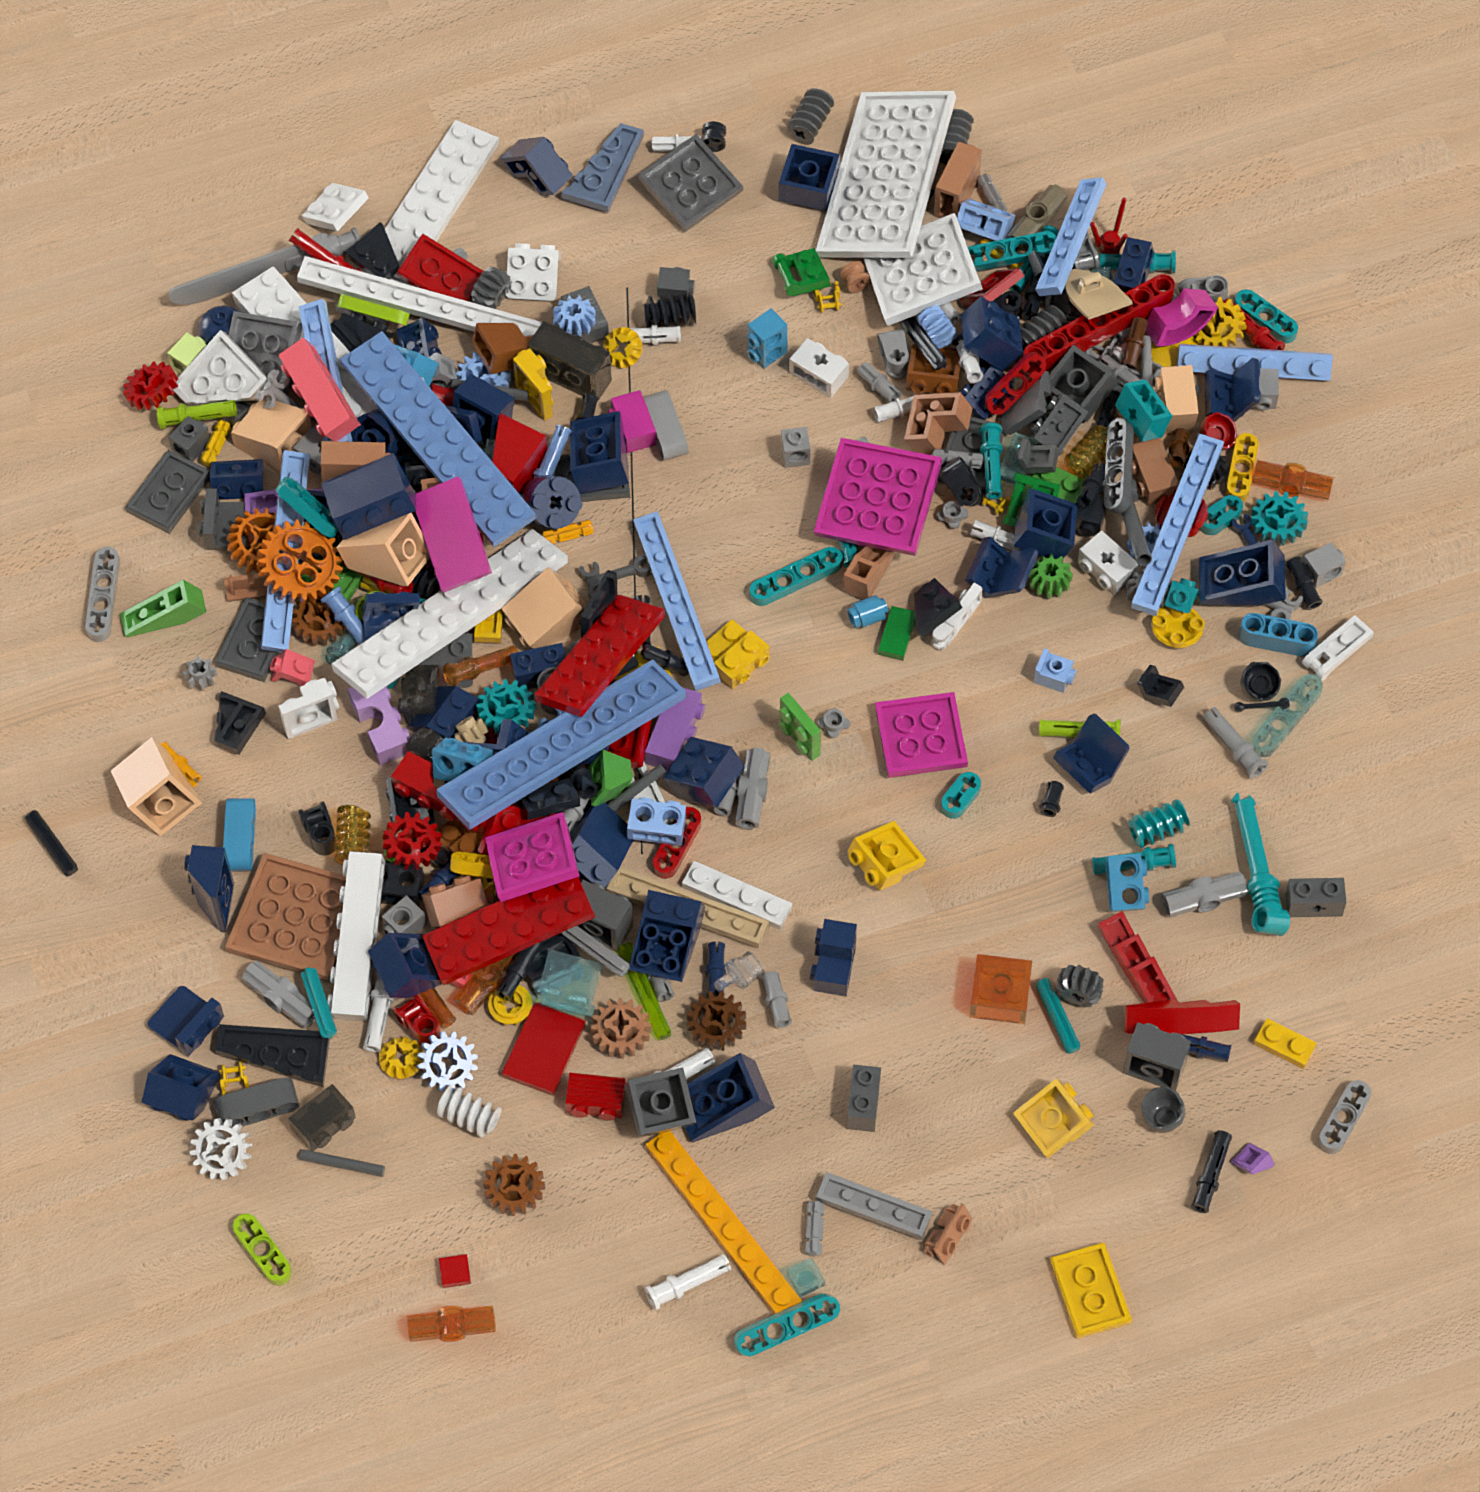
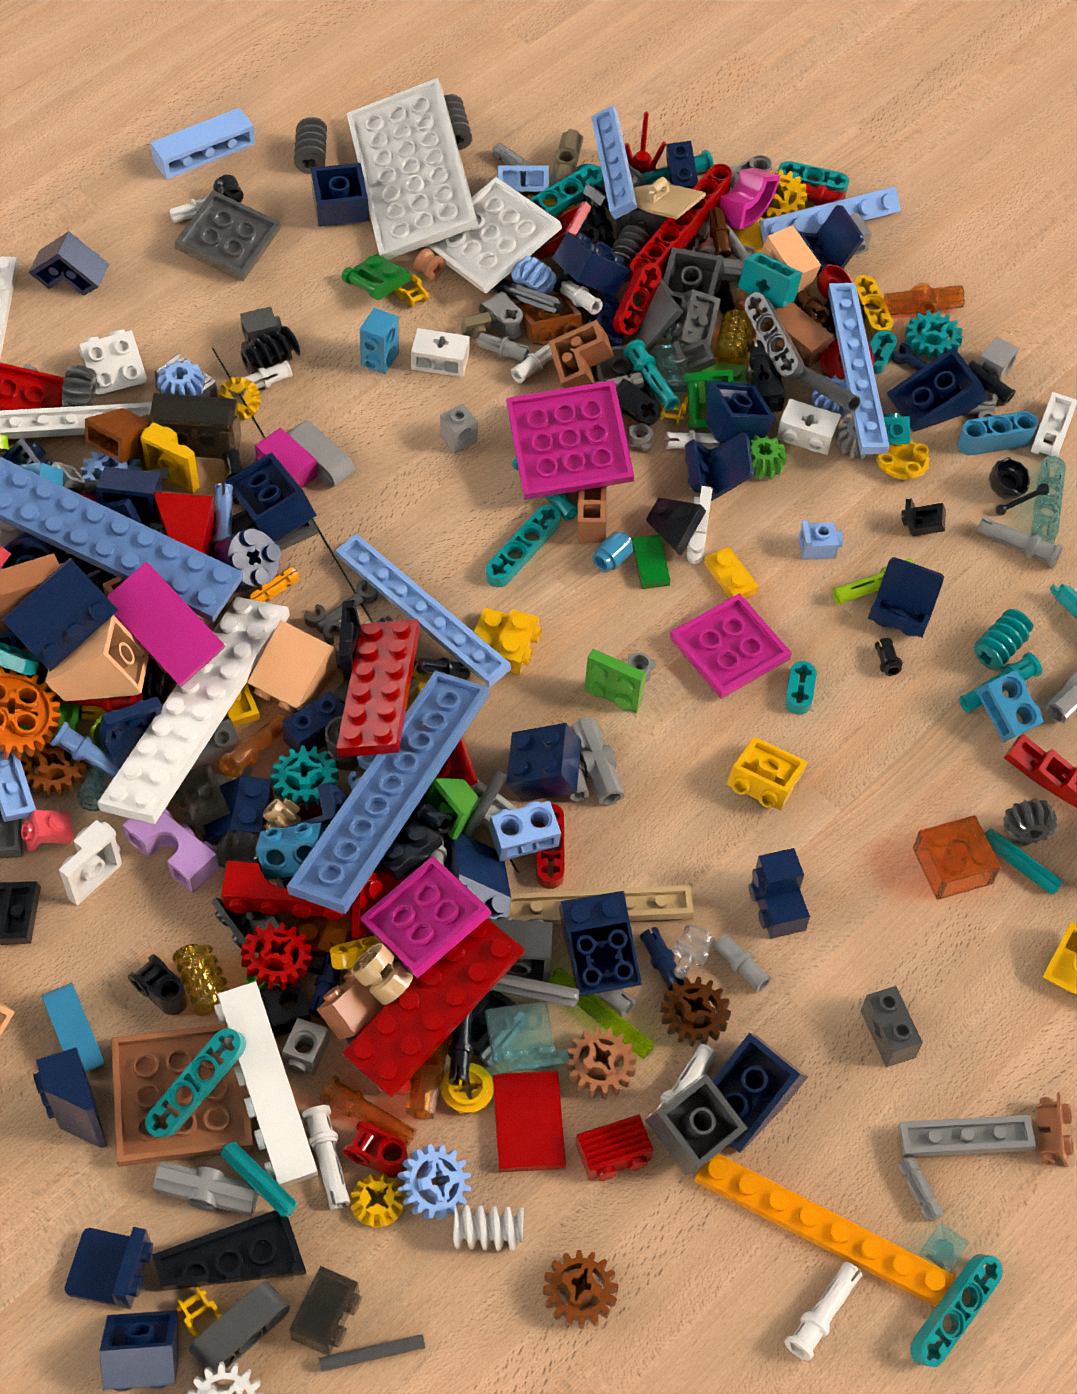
camera: 30 degrees left, 5 degrees down
(305, 916) = (199, 1087): none -> teal beam
(404, 965) = (337, 1094): dark blue slope -> none
(483, 896) = (384, 976): none -> tan wheel
(606, 171) = (138, 252): sand blue wing -> none
(674, 730) = (488, 737): medium lavender brick -> none
(715, 78) = (202, 143): none -> light blue brick
(736, 894) = (638, 872): white plate -> none
(864, 353) = (476, 324): none -> dark tan plate
(957, 180) = (480, 151): nougat brick -> none
(961, 671) = (731, 573): none -> yellow plate

